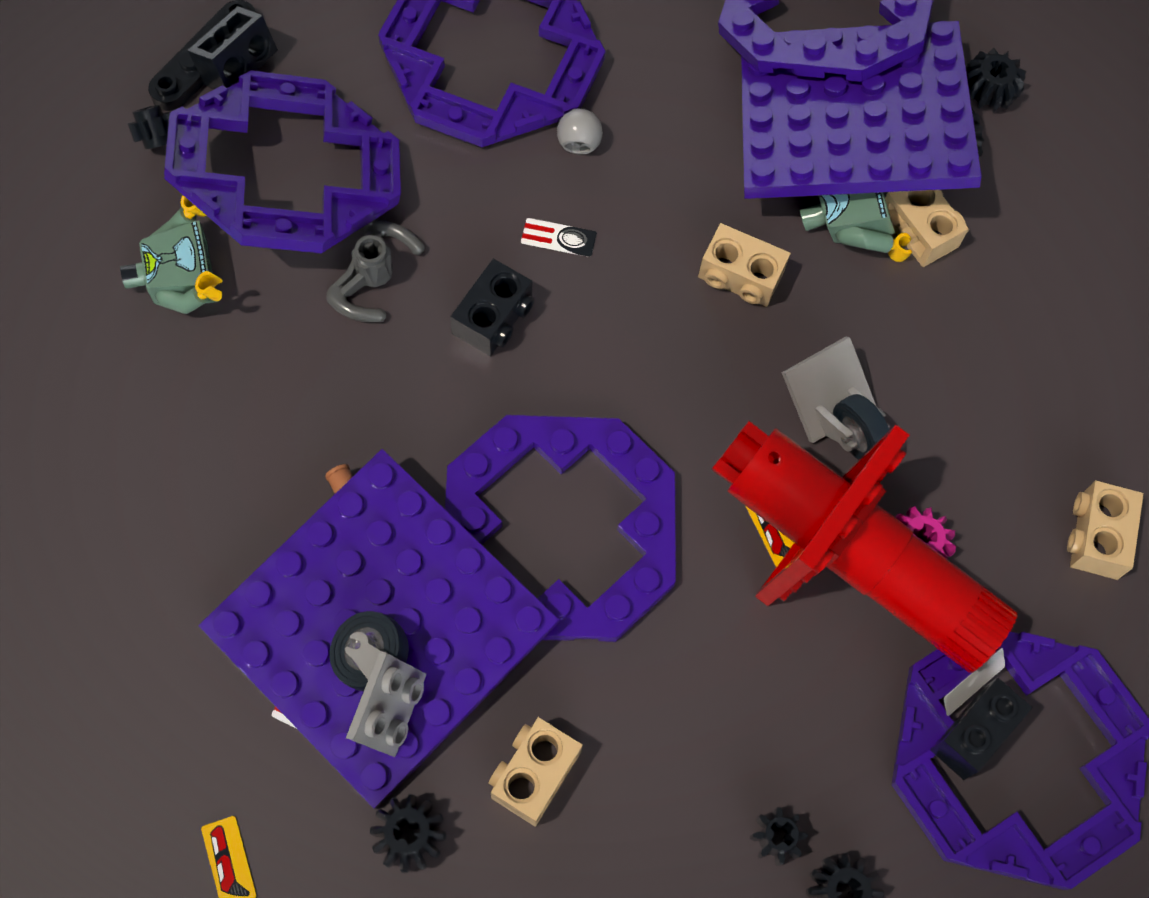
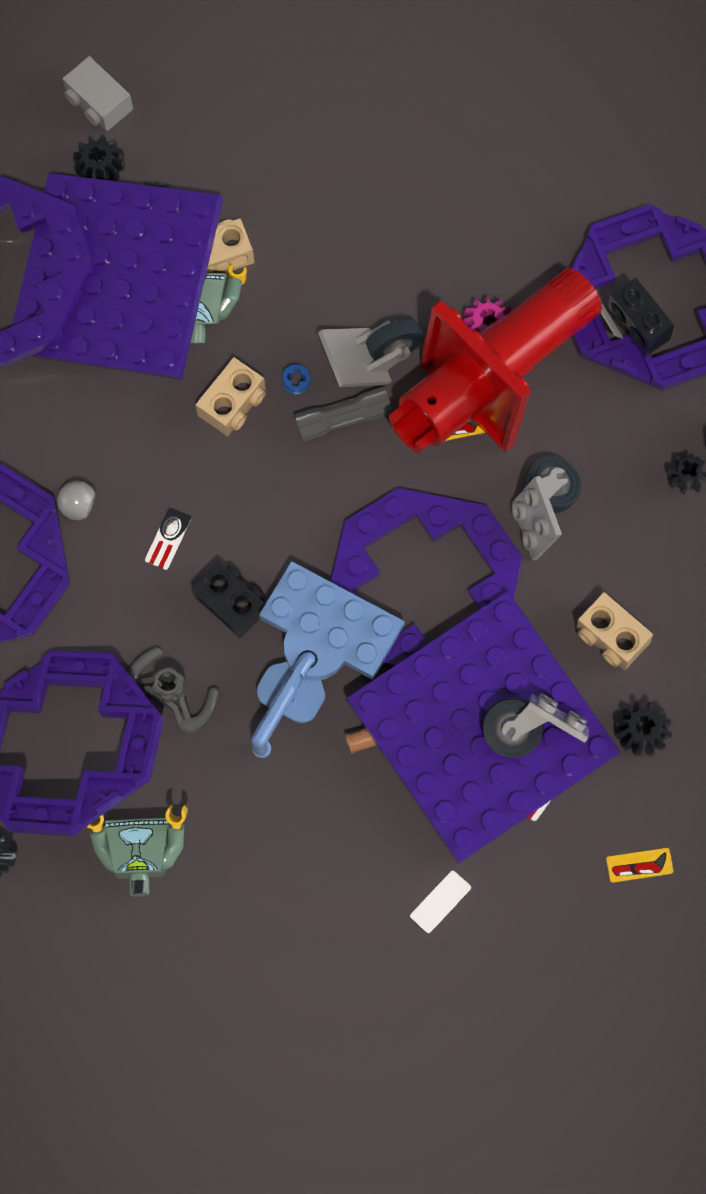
camera: 70 degrees left, 5 degrees up
(154, 617) = (440, 901): none -> white sticker
(471, 426) = (321, 624): none -> medium blue plate
(716, 652) = (549, 488): none -> light grey plate
(739, 370) = (365, 407): none -> dark grey axle
(794, 327) = (289, 372): none -> blue bush
(1075, 63) = (97, 94): none -> light grey brick
(1115, 533) = (507, 185): tan brick -> none

